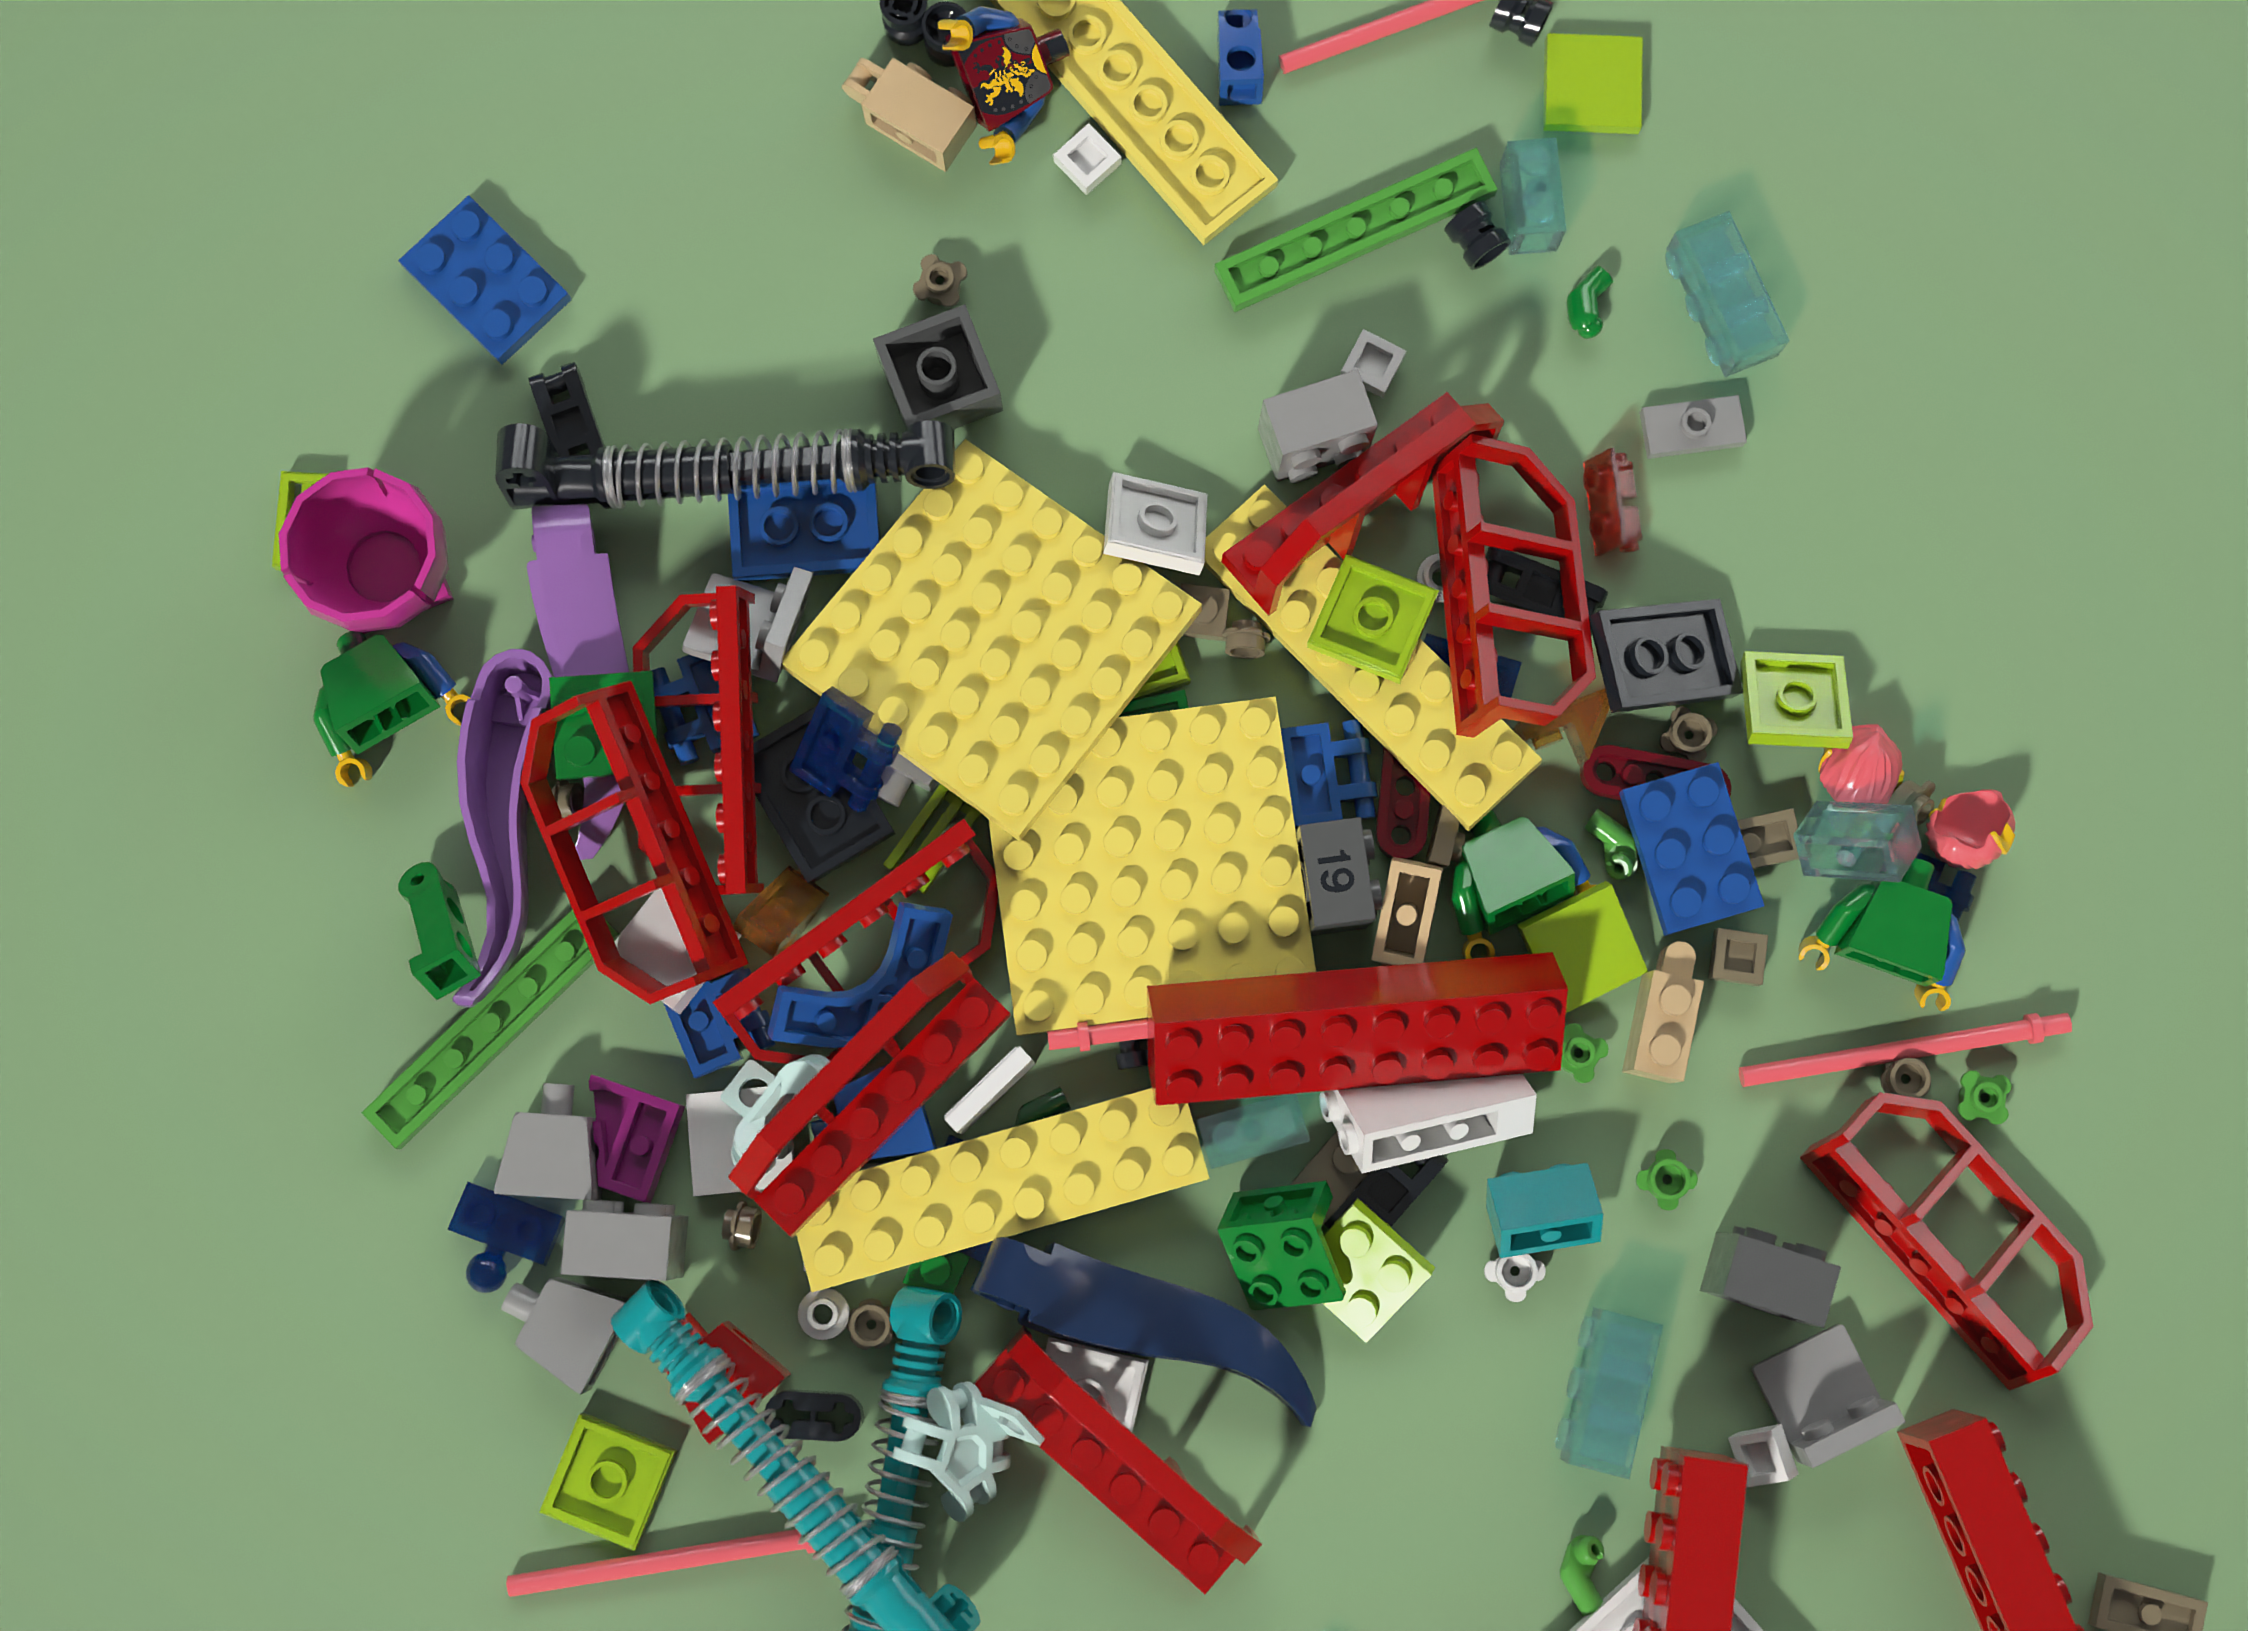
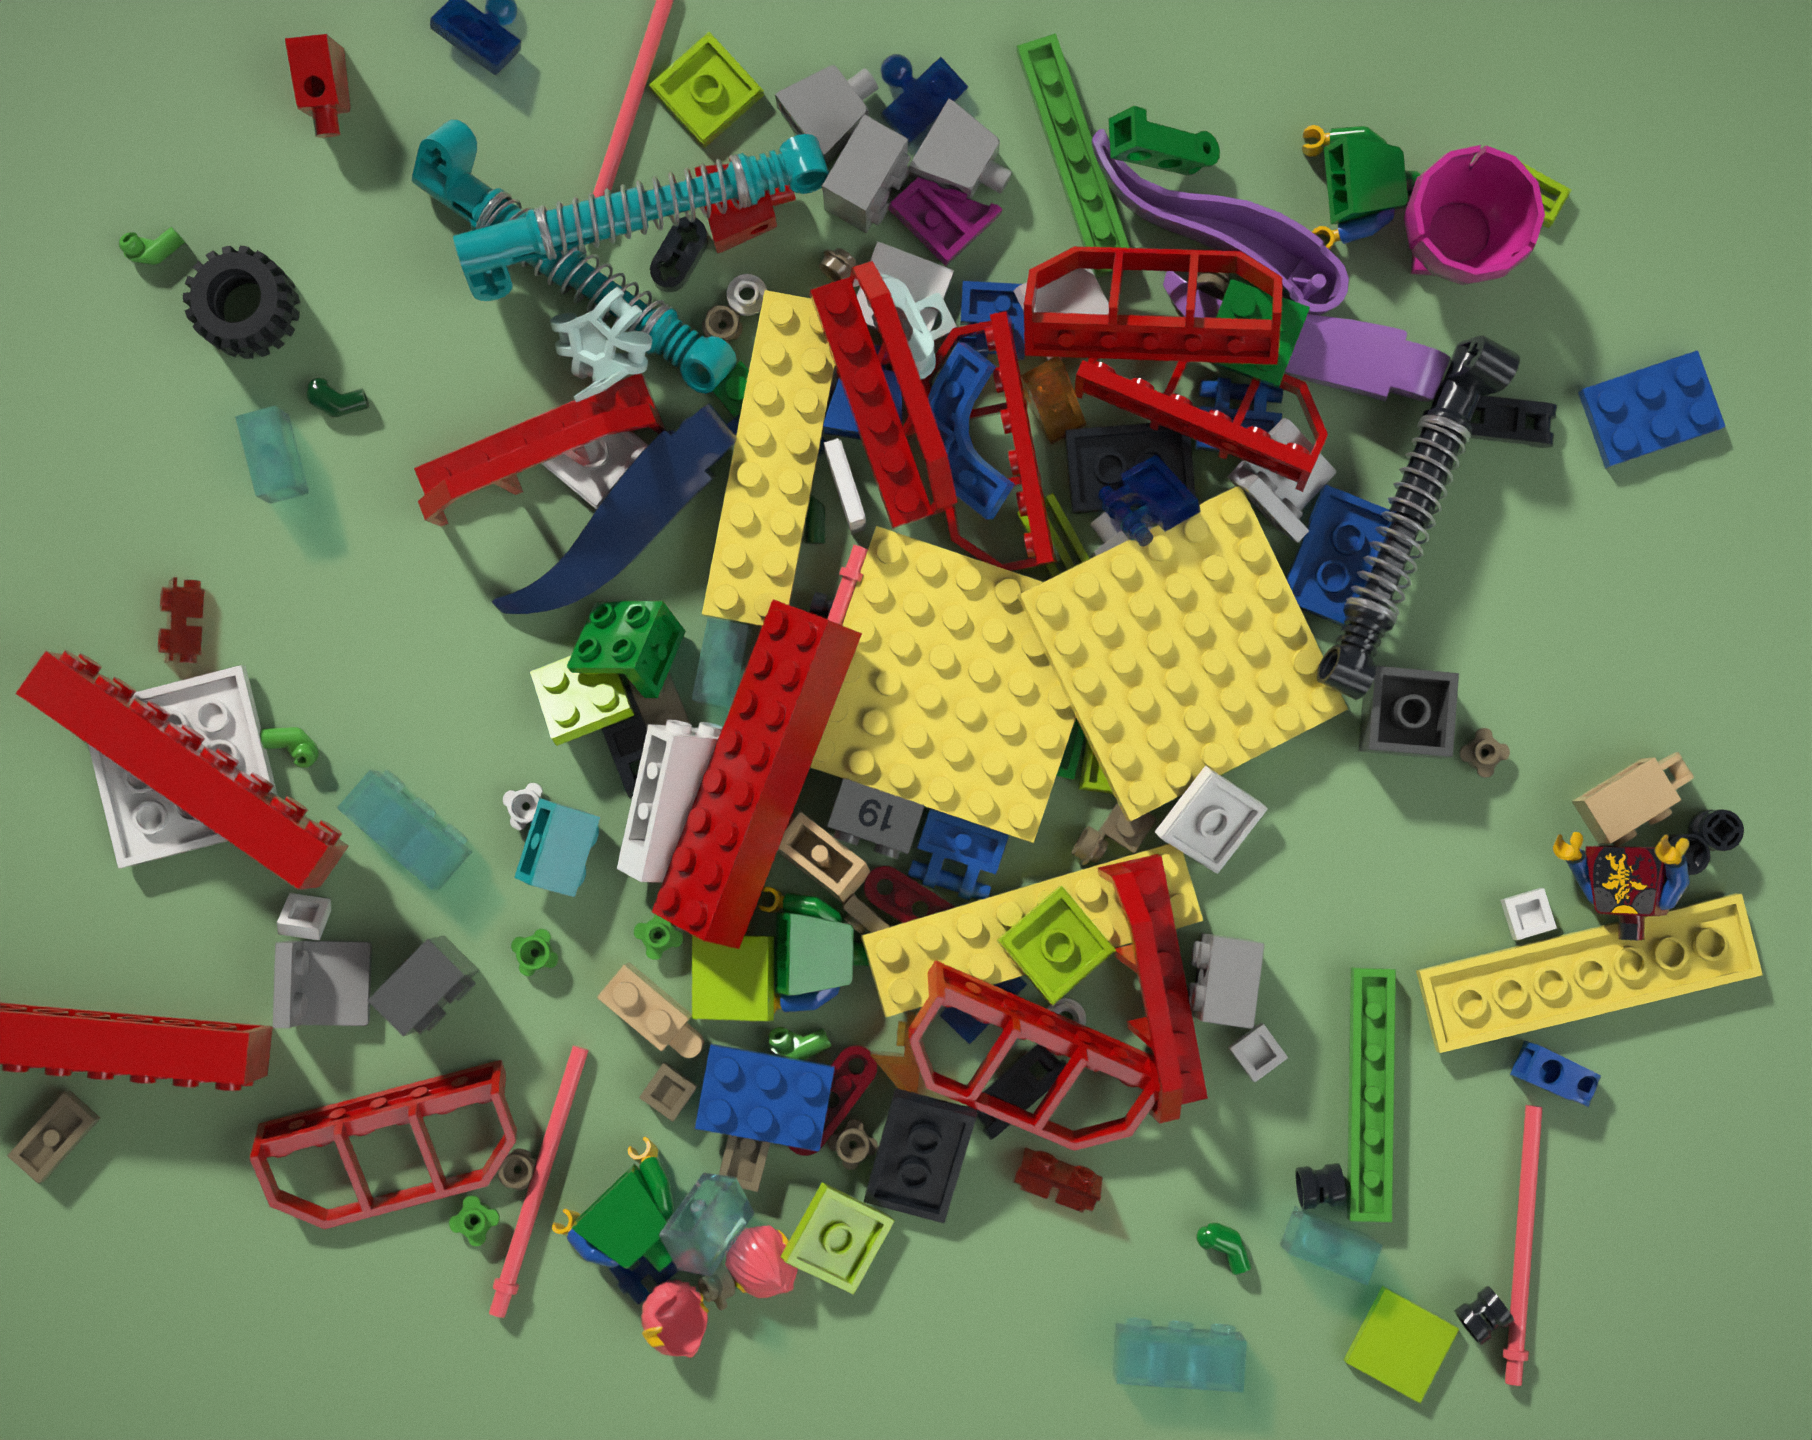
camera: 110 degrees right, 5 degrees up
(1693, 426) = (1088, 1276): light grey plate -> none

